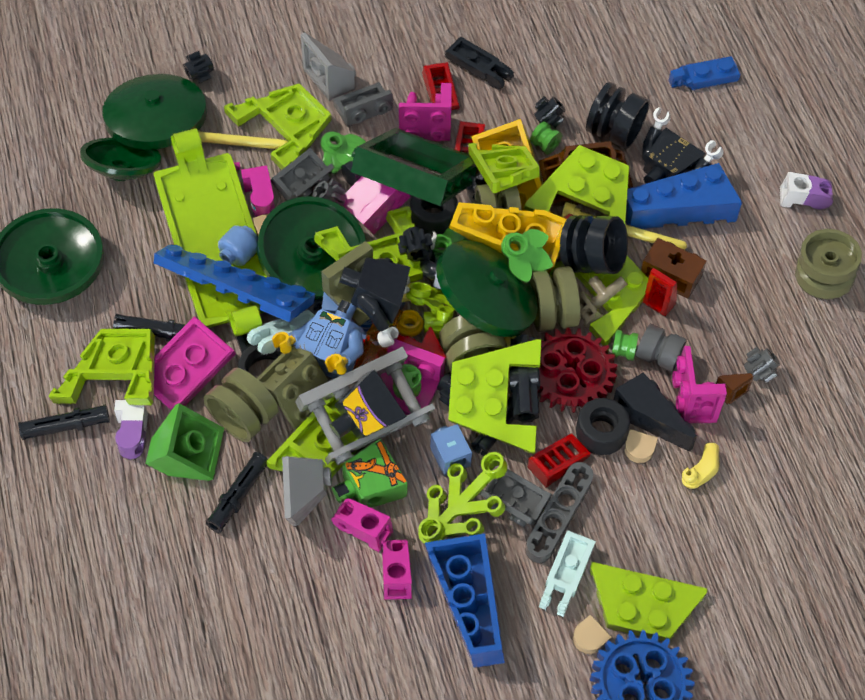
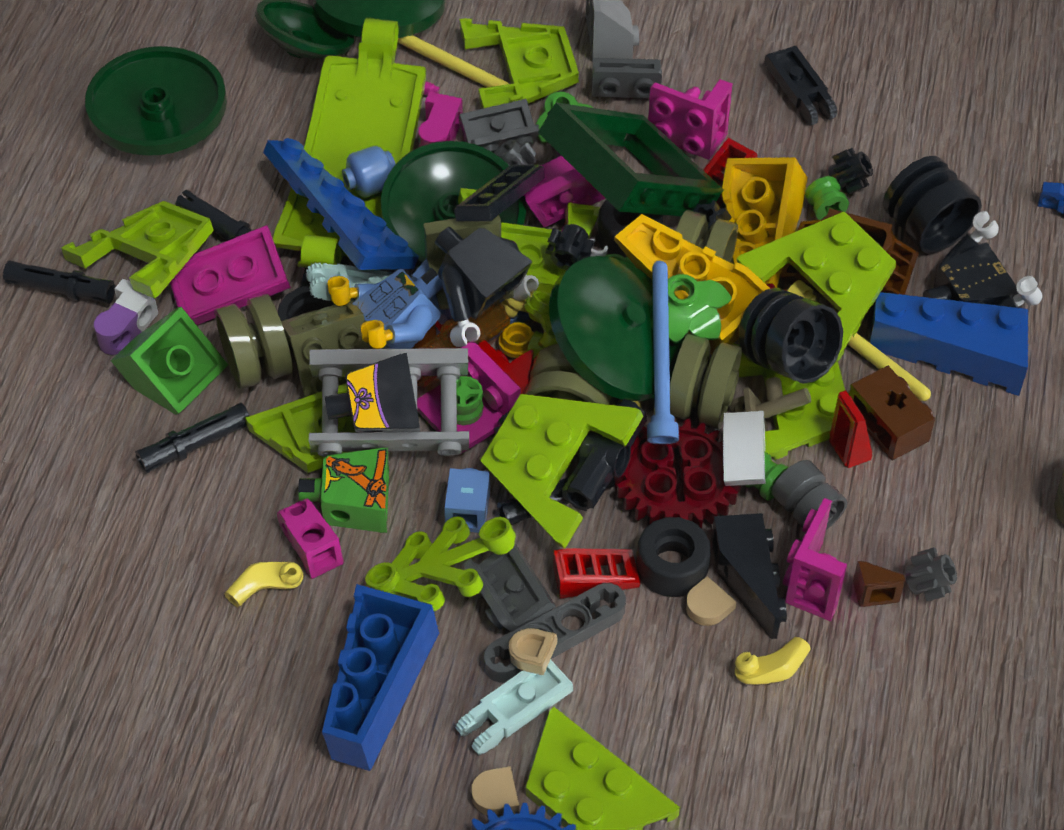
camera: 30 degrees right, 5 degrees down
(304, 486) = (256, 459): light grey slope -> none
(349, 566) = (264, 576): none -> light yellow arm
(353, 226) = (499, 193): none -> black tile
(396, 570) = (311, 604): dark pink leg -> none
(439, 70) = (741, 74): red slope -> none
(504, 165) = (736, 201): lime wing -> none
(550, 341) = (662, 426): none -> medium blue piece
(558, 531) = (532, 649): none -> tan tile
(608, 333) = (744, 448): none -> white slope

